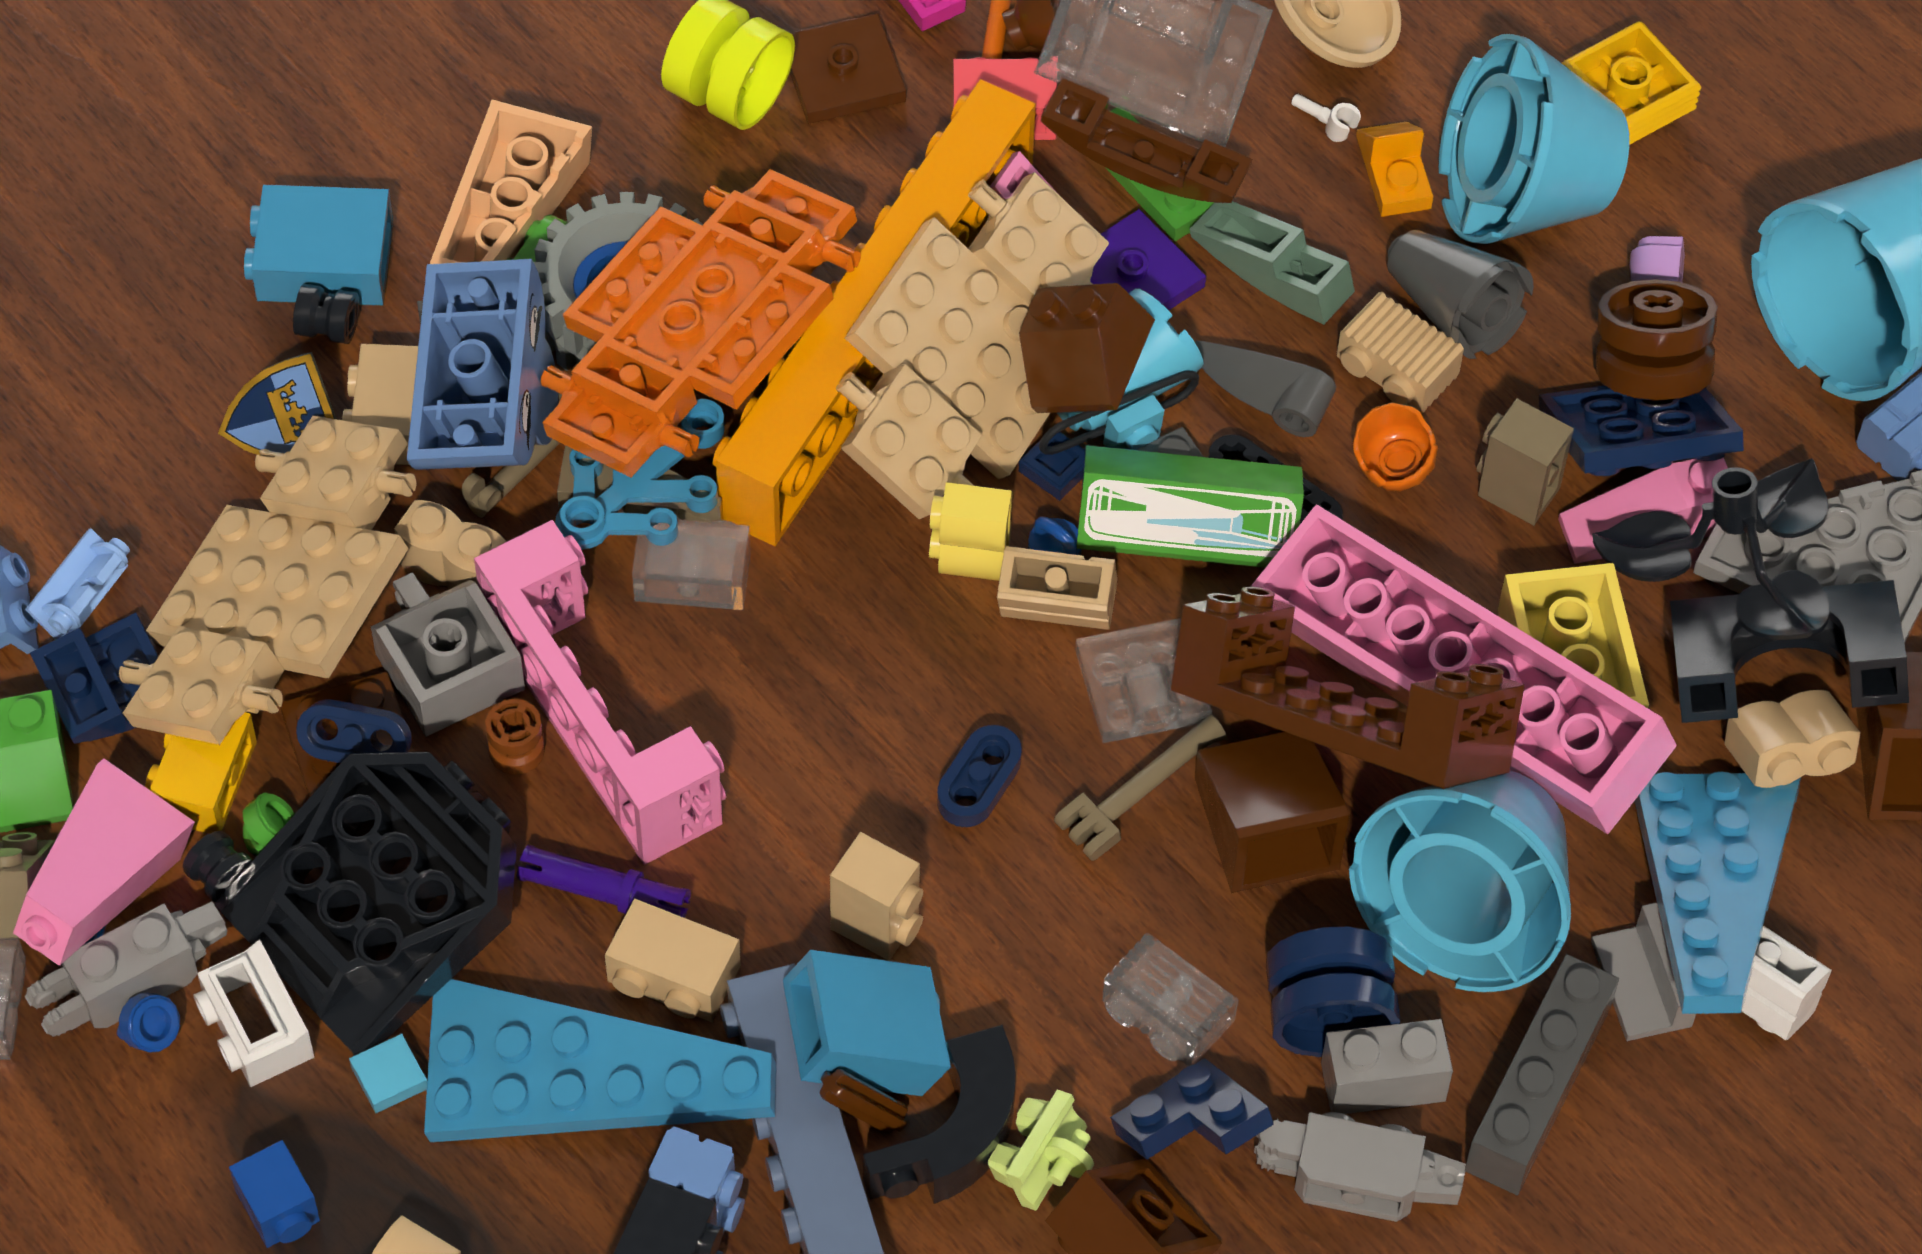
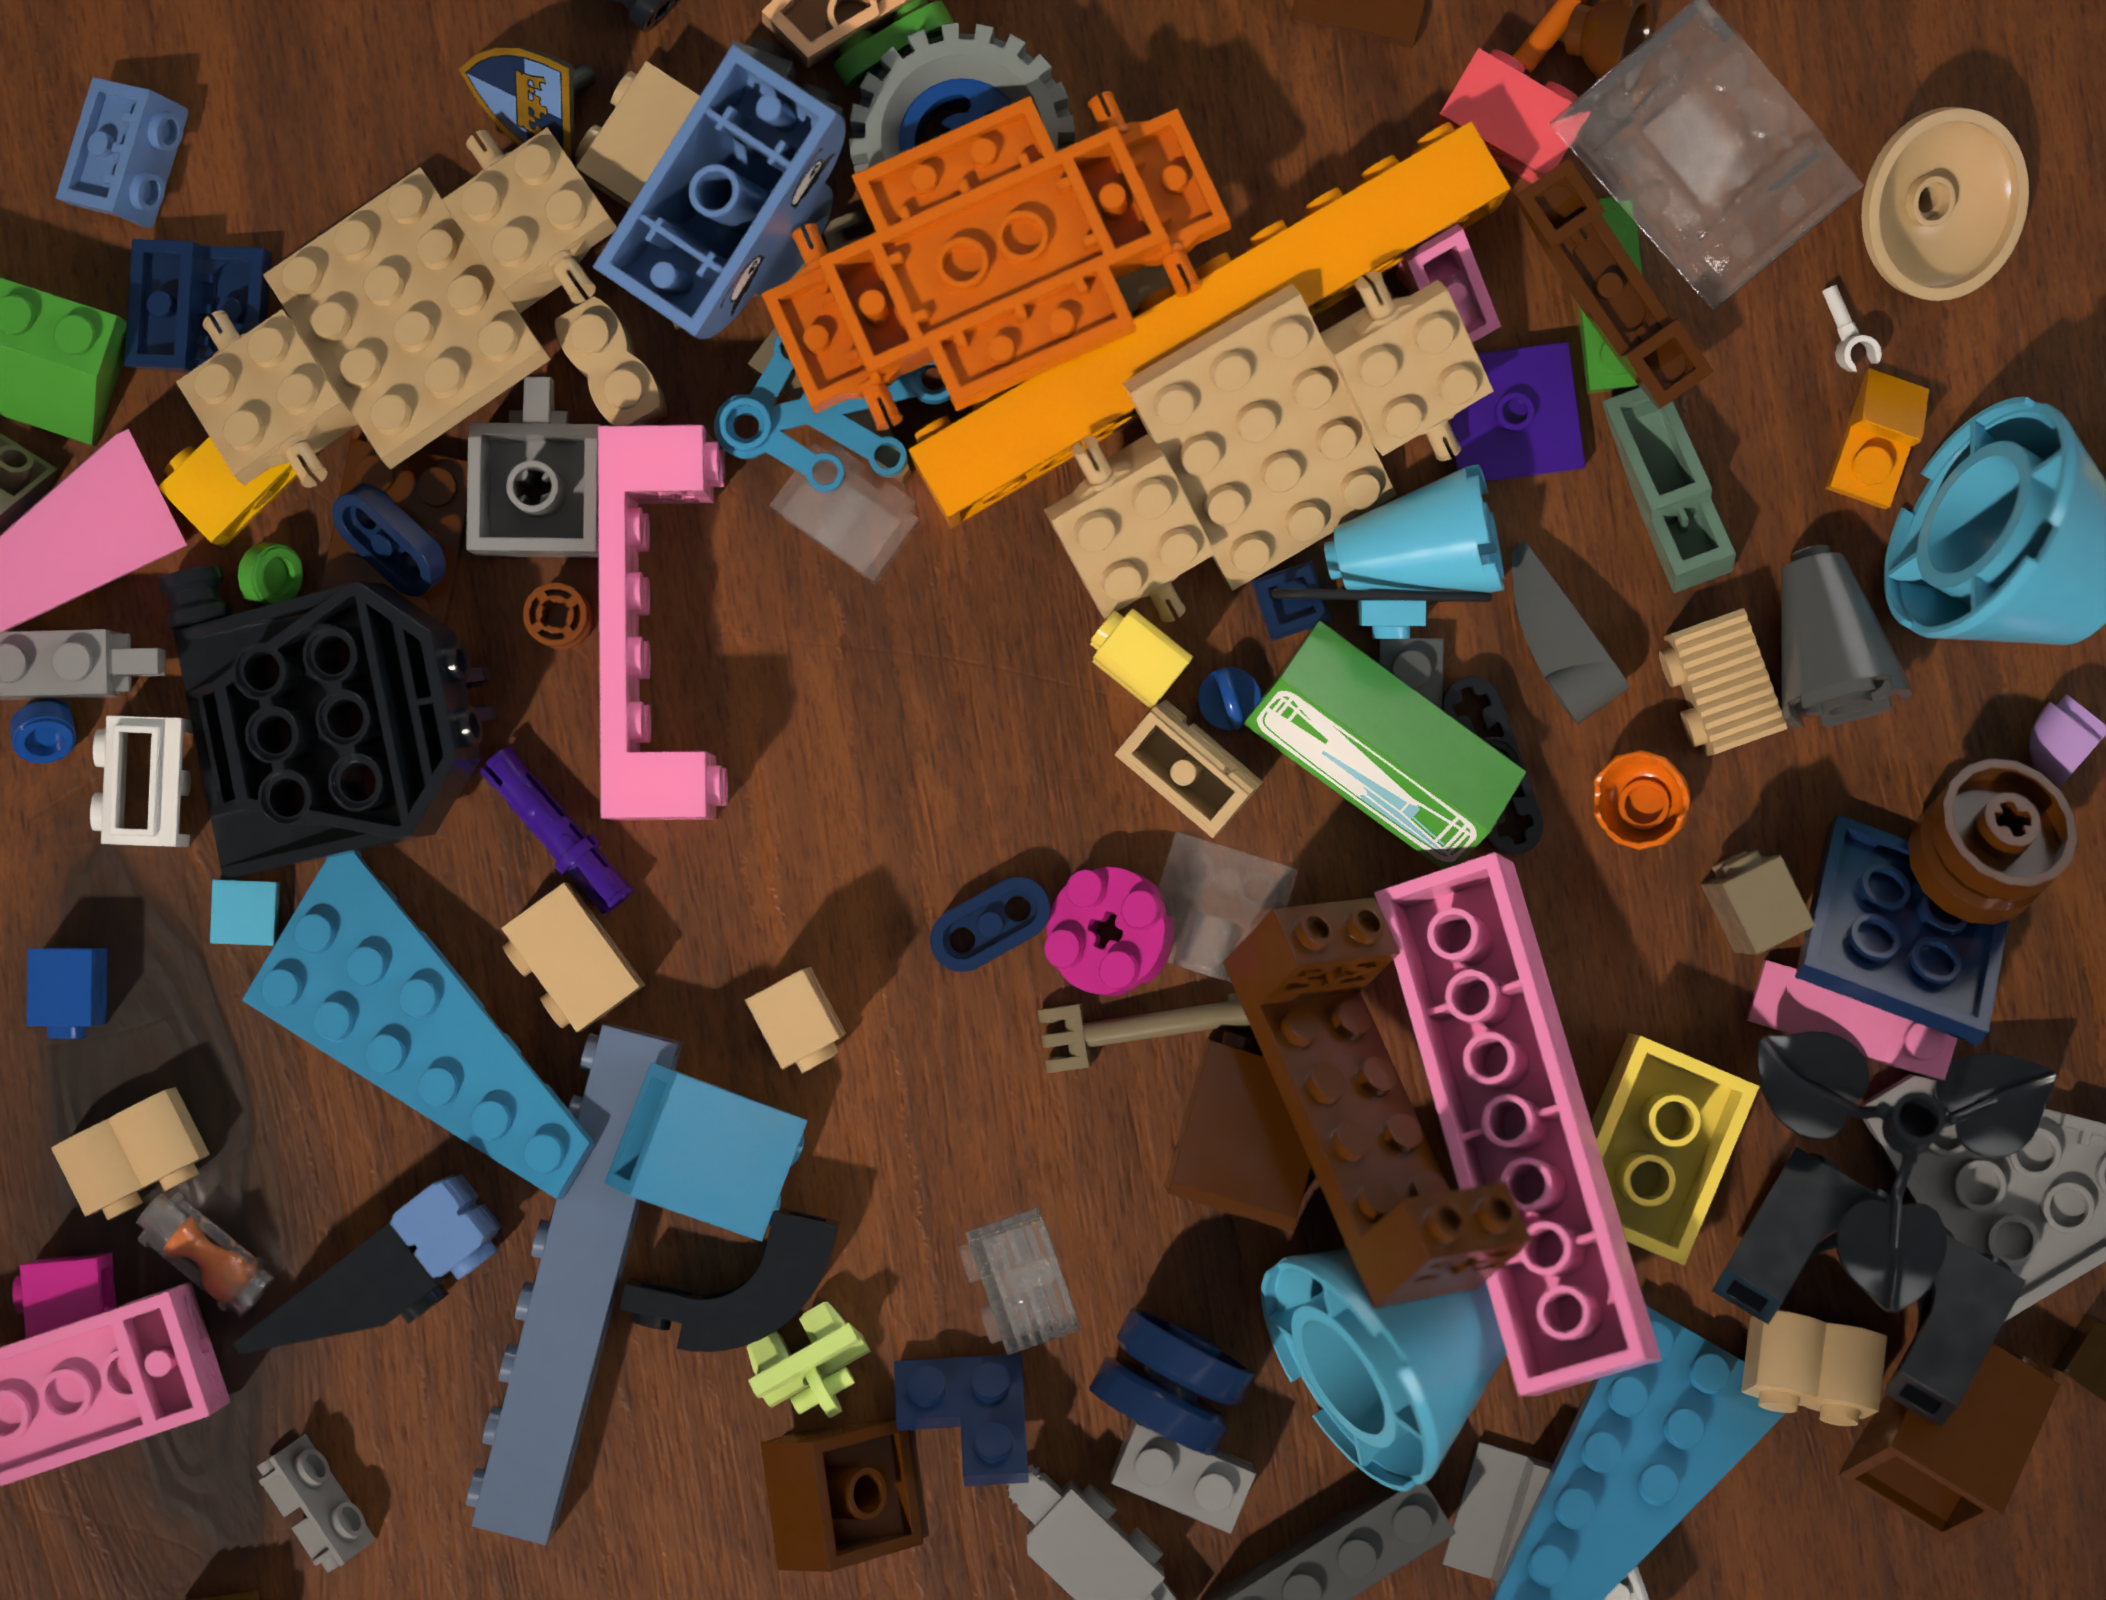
camera: 30 degrees right, 30 degrees up
(79, 584) = (219, 183): light blue hinge -> none
(863, 1101) = (659, 1226): reddish brown axle -> none
(1051, 708) = (1074, 922): none -> dark pink plate
(1082, 346) = (1370, 525): reddish brown slope -> none

